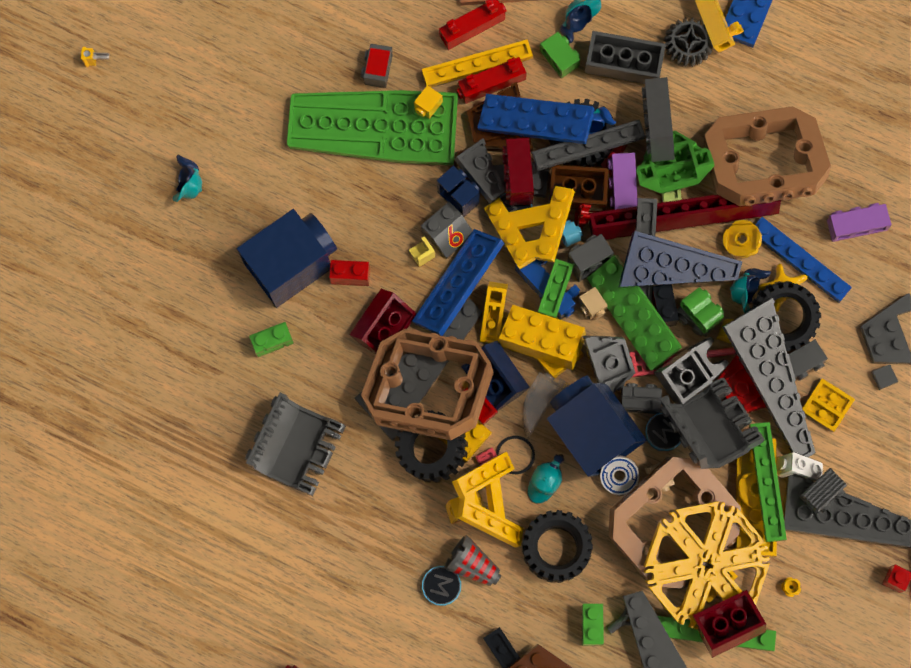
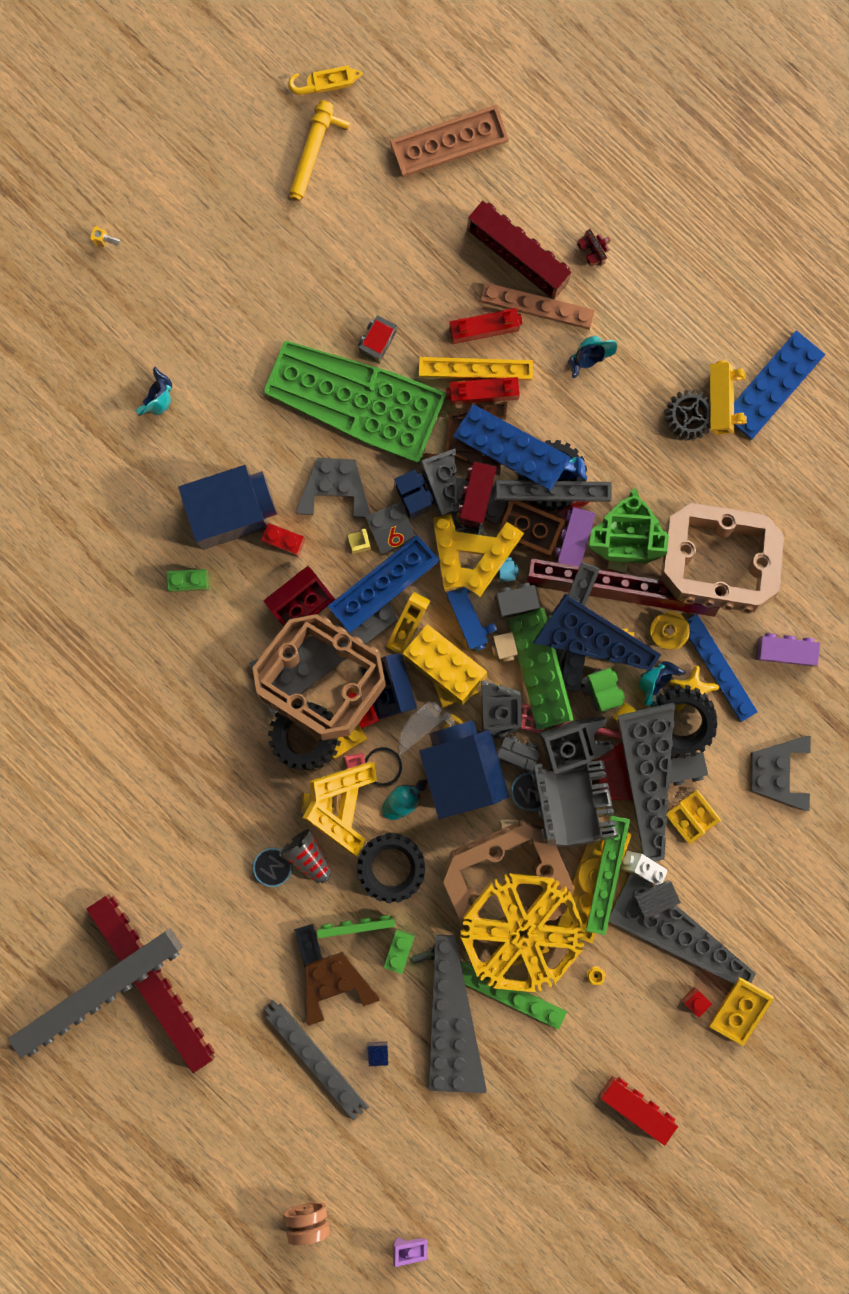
camera: 10 degrees right, 10 degrees up
(292, 443) = (176, 688): dark grey hinge -> none
(378, 204) = (334, 479): none -> dark grey wing
(427, 102) = (413, 394): yellow brick -> none
(549, 611) = (348, 927): none -> bright green plate
(555, 288) = (473, 622): bright green plate -> none
(560, 54) = (559, 386): bright green brick -> none
(582, 215) = (524, 557): red plate -> none
(622, 486) = (477, 829): white tile -> none
(624, 57) = (621, 412): dark grey brick -> none
(658, 120) = (629, 487): dark grey brick -> none
(729, 623) = (524, 994): dark red slope -> none
(884, 377) = (756, 808): dark grey tile -> none

